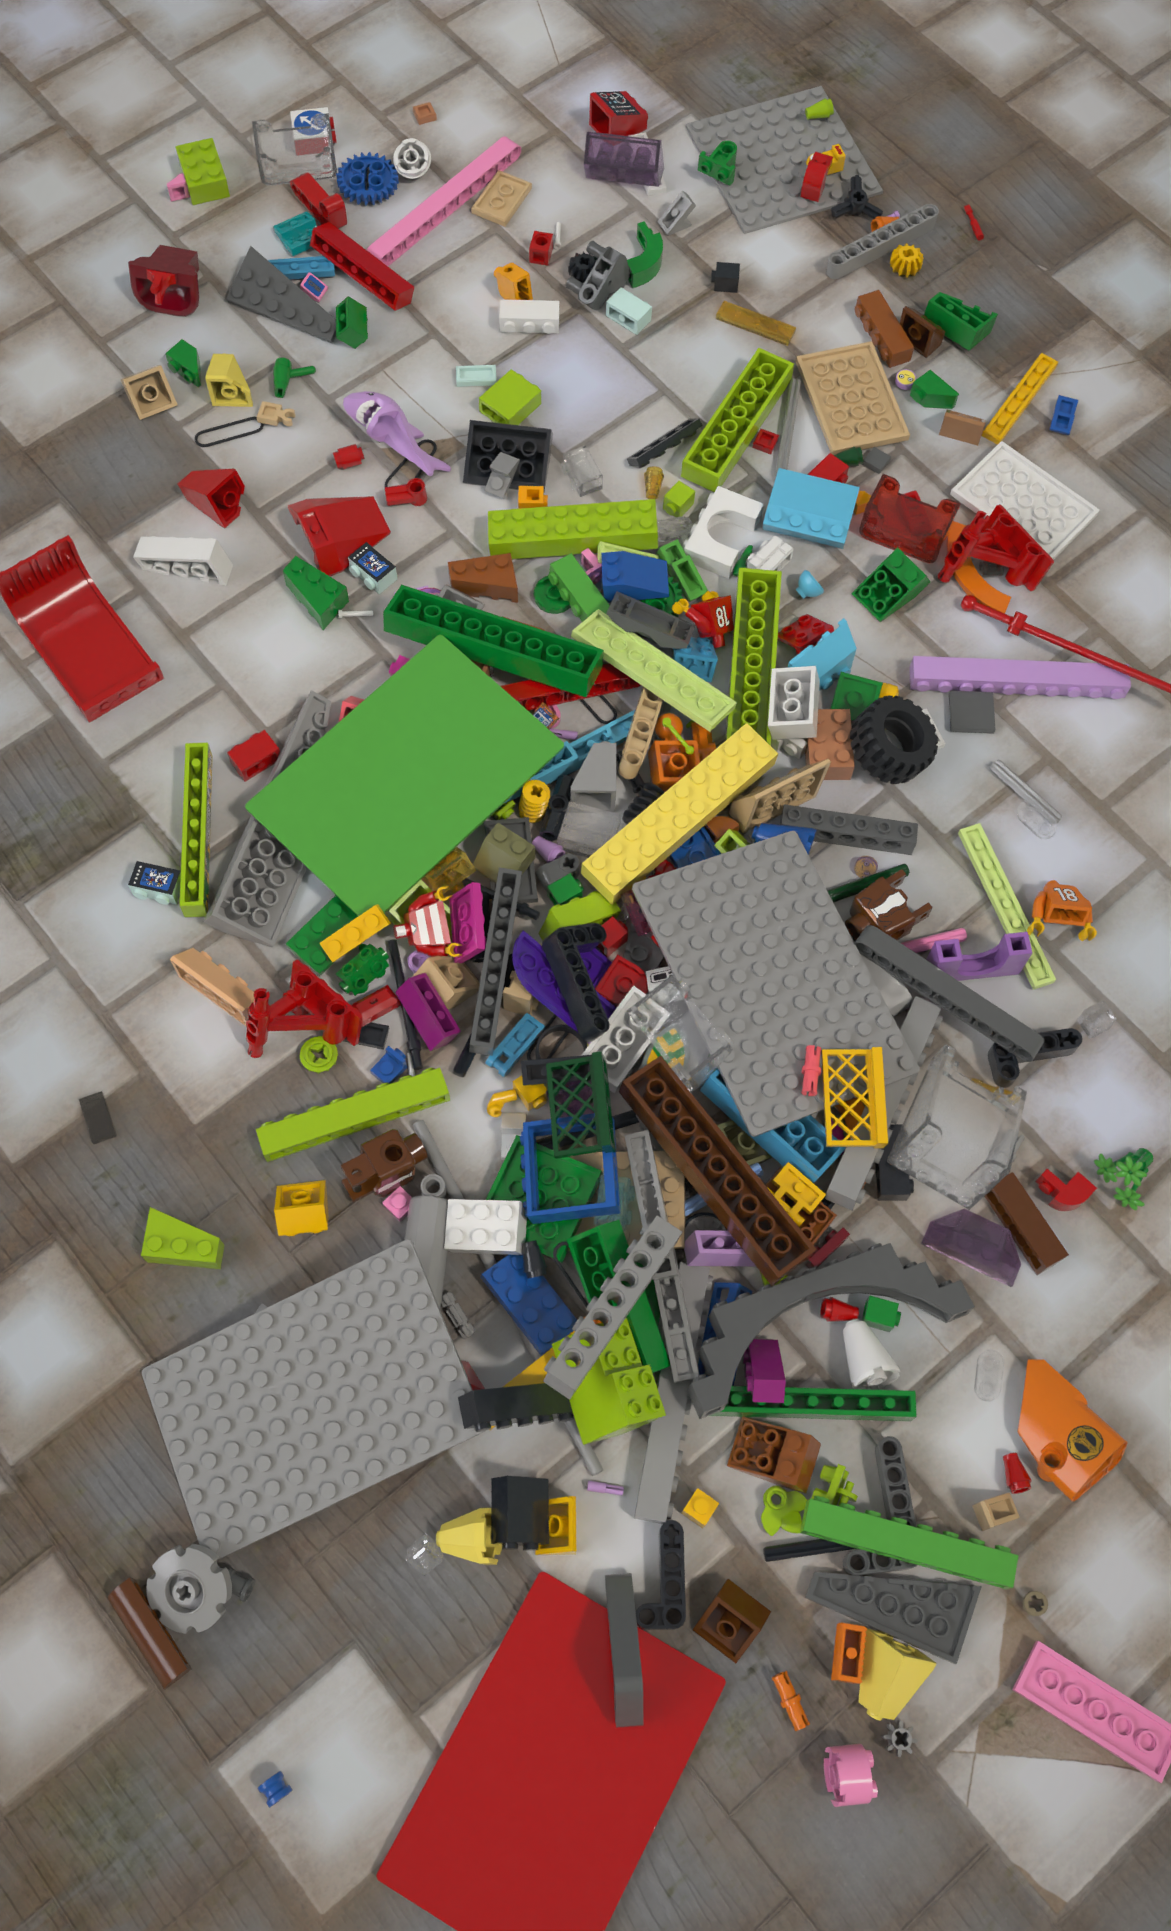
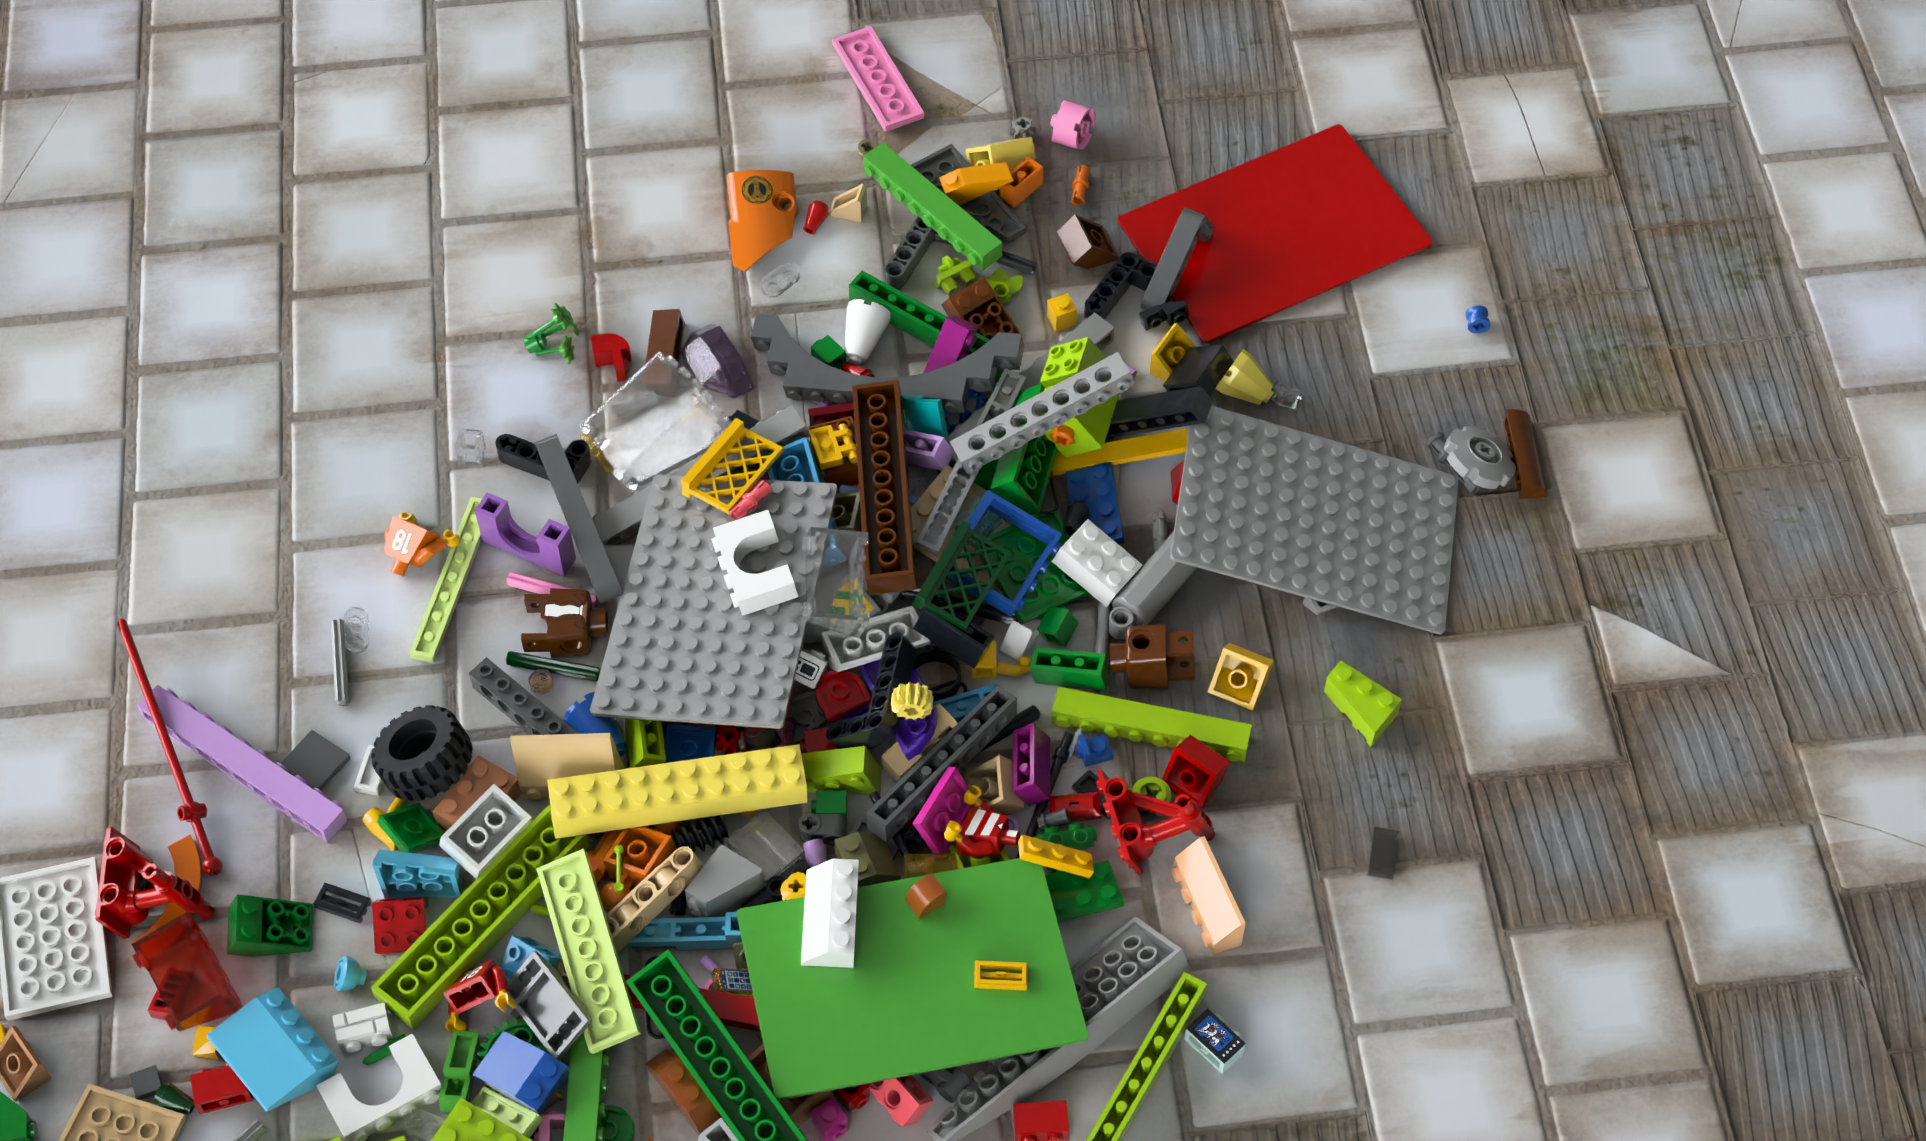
camera: 145 degrees left, 10 degrees down
(288, 1088) = (1195, 770): none -> red slope
(323, 820) = (1000, 980): none -> yellow tile
(386, 978) = (1054, 819): none -> dark grey pin
(429, 832) = (925, 896): none -> dark orange brick
(448, 1114) = (1070, 668): none -> green brick
(486, 1154) = (1058, 625): none -> green brick
(490, 774) = (830, 914): none -> white slope
(543, 965) = (912, 701): none -> light yellow gear
(590, 1578) = (1171, 312): none -> black slope
(729, 1275) = (925, 415): none -> teal slope
(746, 979) = (758, 590): none -> white arch
(866, 635) = (356, 917): none -> black tile
(888, 1607) = (975, 181): none -> light orange slope

